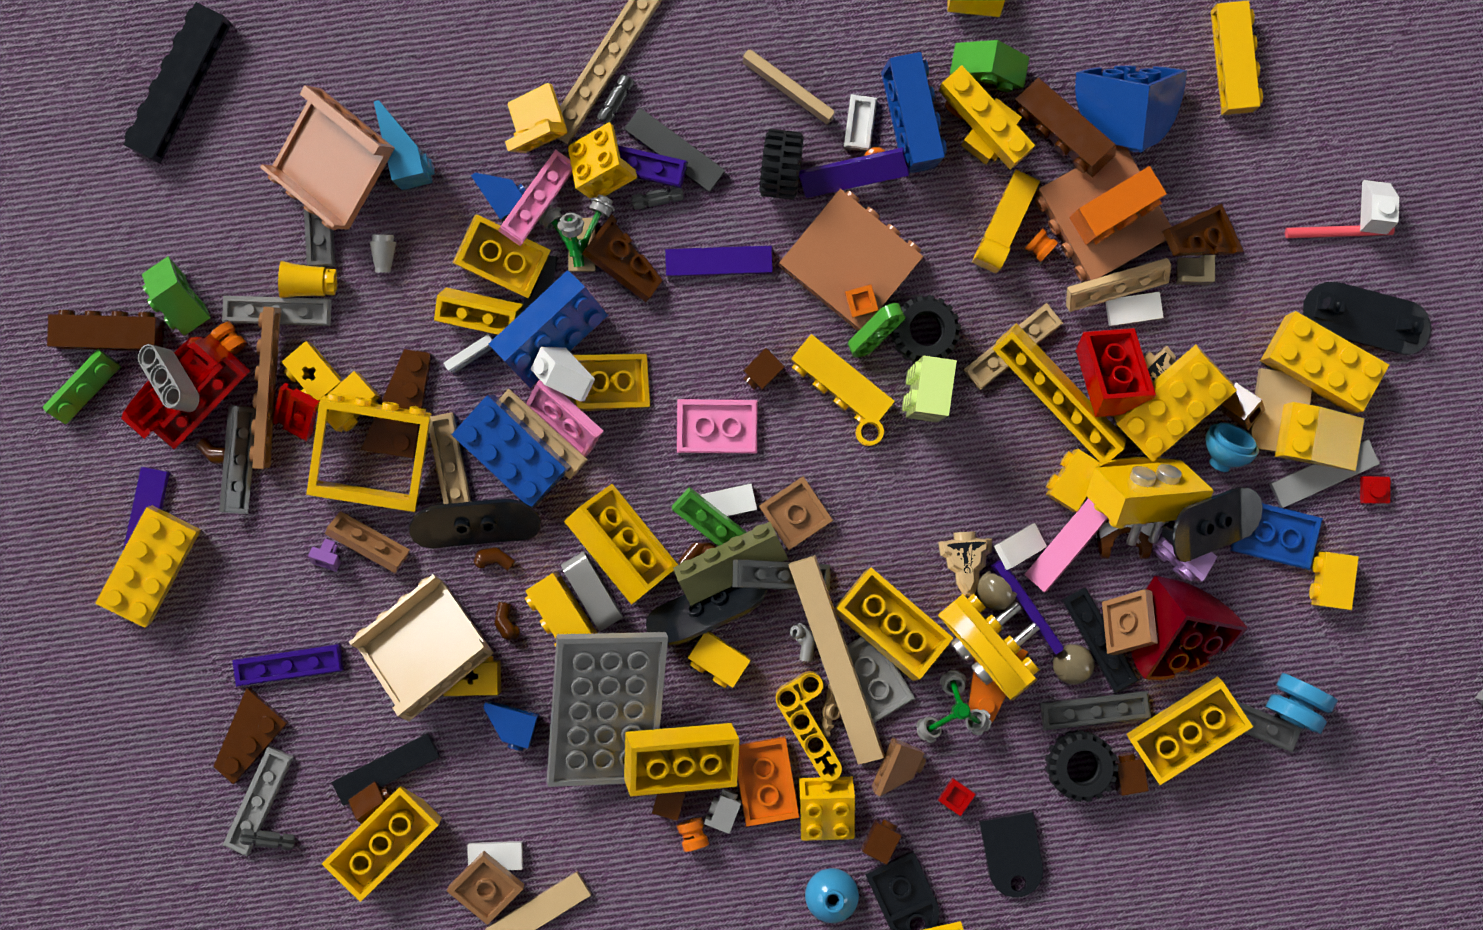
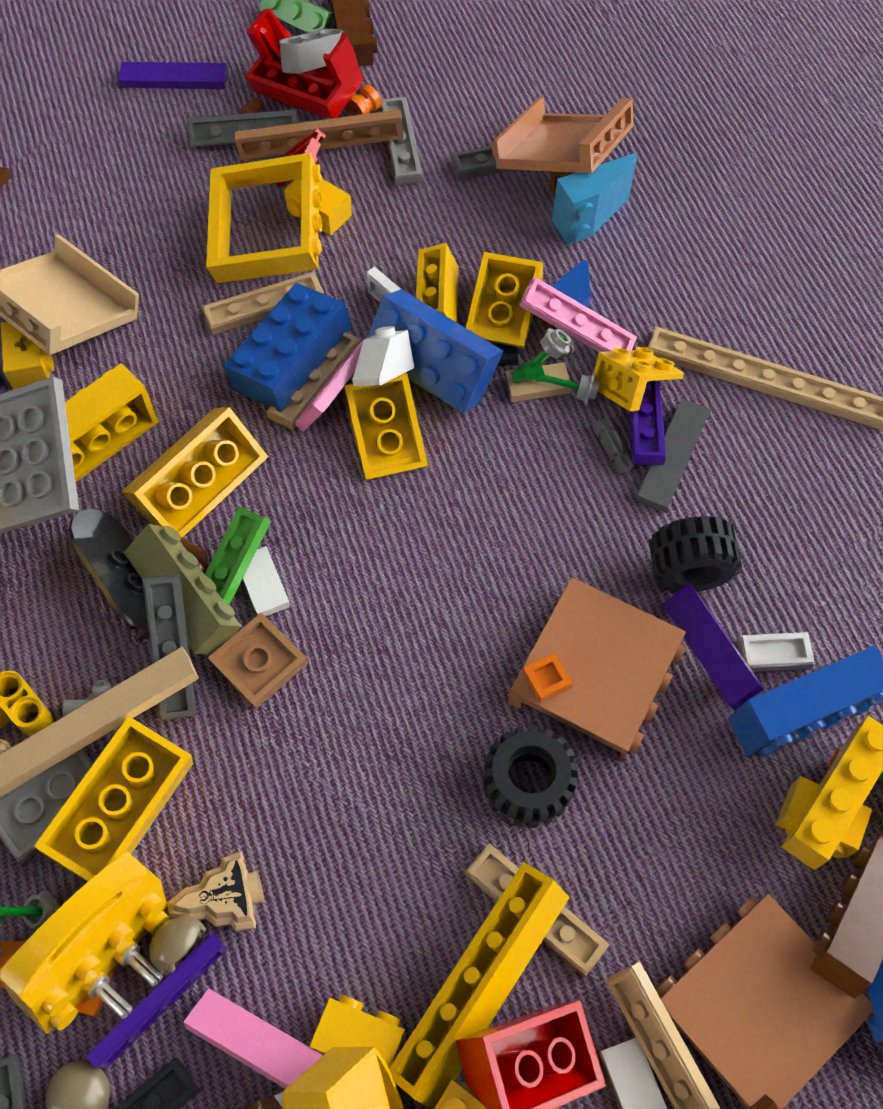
camera: 75 degrees right, 25 degrees down
(148, 566) = (126, 75): yellow brick -> none
(173, 297) = (393, 53): bright green brick -> none
(177, 82) = (602, 35): black brick -> none
(288, 665) = (35, 201): dark purple tile -> none
(305, 280) = (434, 143): yellow plant -> none
(307, 358) = (348, 166): yellow brick -> none
(325, 556) = (153, 209): medium lavender tile -> none
(367, 542) = (170, 240): medium nougat plate -> none
(382, 252) = (482, 208): light grey cone -> none
(406, 389) = (338, 253): reddish brown wing -> none
(474, 523) = (200, 323): black piece -> none
(493, 555) = (169, 355): reddish brown arm -> none
(503, 624) = (83, 378): reddish brown arm -> none
(535, 119) = (659, 313): yellow bracket -> none
(592, 591) = (133, 452): light grey beam -> none
(616, 99) = (712, 386): dark grey axle -> none
(618, 258) = (532, 415): reddish brown wing -> none
(716, 426) = (355, 555): bright pink tile -> none
(718, 261) = (557, 523): dark purple tile -> none
(718, 659) = (60, 601): yellow brick -> none
(762, 370) = (434, 589): reddish brown brick -> none
(788, 86) = (790, 558): tan tile -> none
(844, 383) = (434, 691): yellow hinge -> none
(876, 330) = (531, 708): bright green beam -> none
(930, 389) = (447, 776): yellowish green brick -> none
(1005, 222) = (705, 860): yellow beam -> none
(1020, 546) = (247, 970): white tile -> none
(1041, 245) = (689, 919): orange wheel -> none
(1118, 207) = (784, 1009): orange brick -> none

